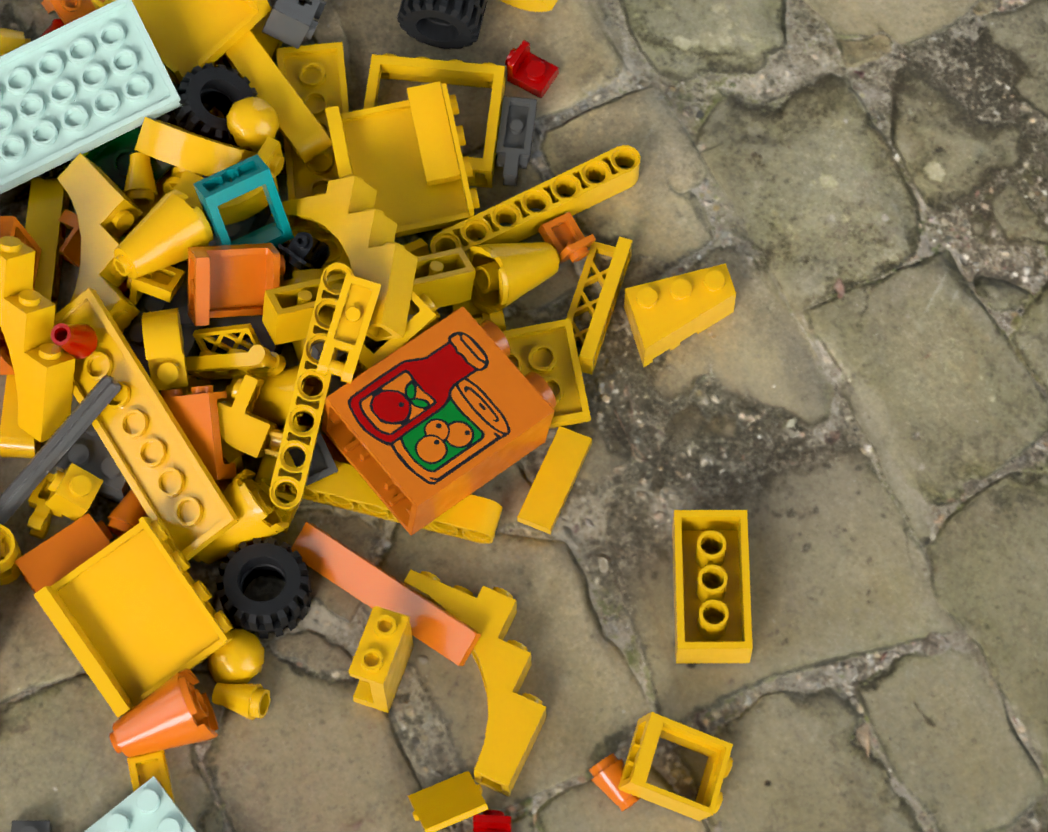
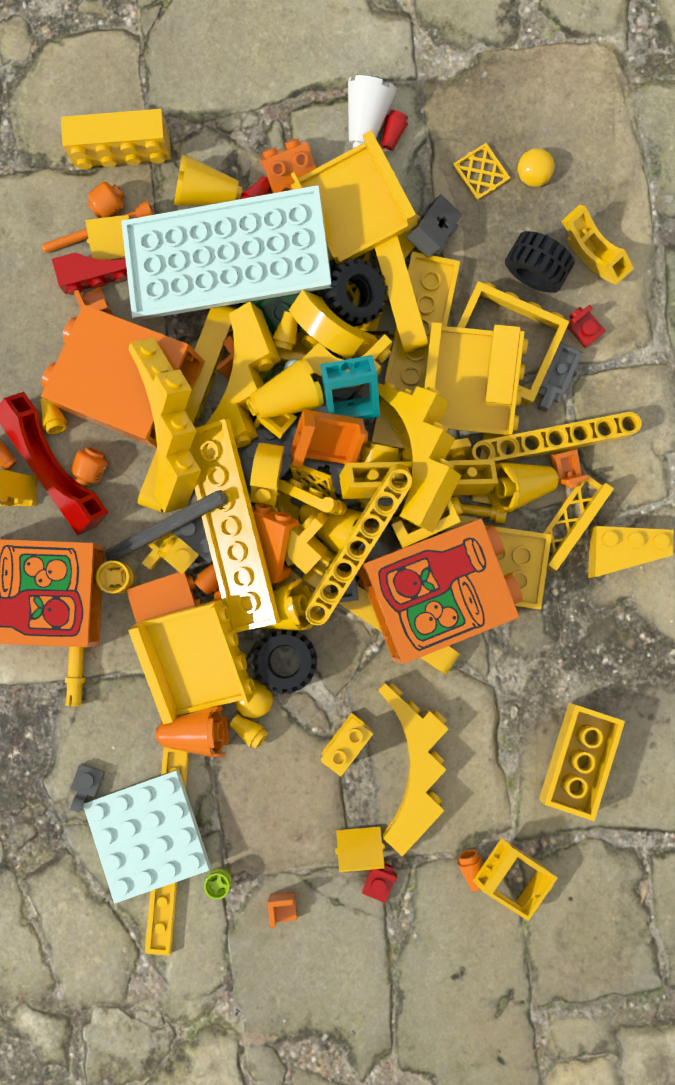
camera: 20 degrees right, 20 degrees up
(75, 339) = (205, 456): red cone -> none
(252, 122) = (377, 316): yellow hair -> none
(306, 252) = (384, 431): black hinge -> none
(349, 326) = (396, 520): yellow plate -> none
(378, 588) = (363, 693): orange tile -> none
(554, 480) = (501, 644): yellow tile -> none

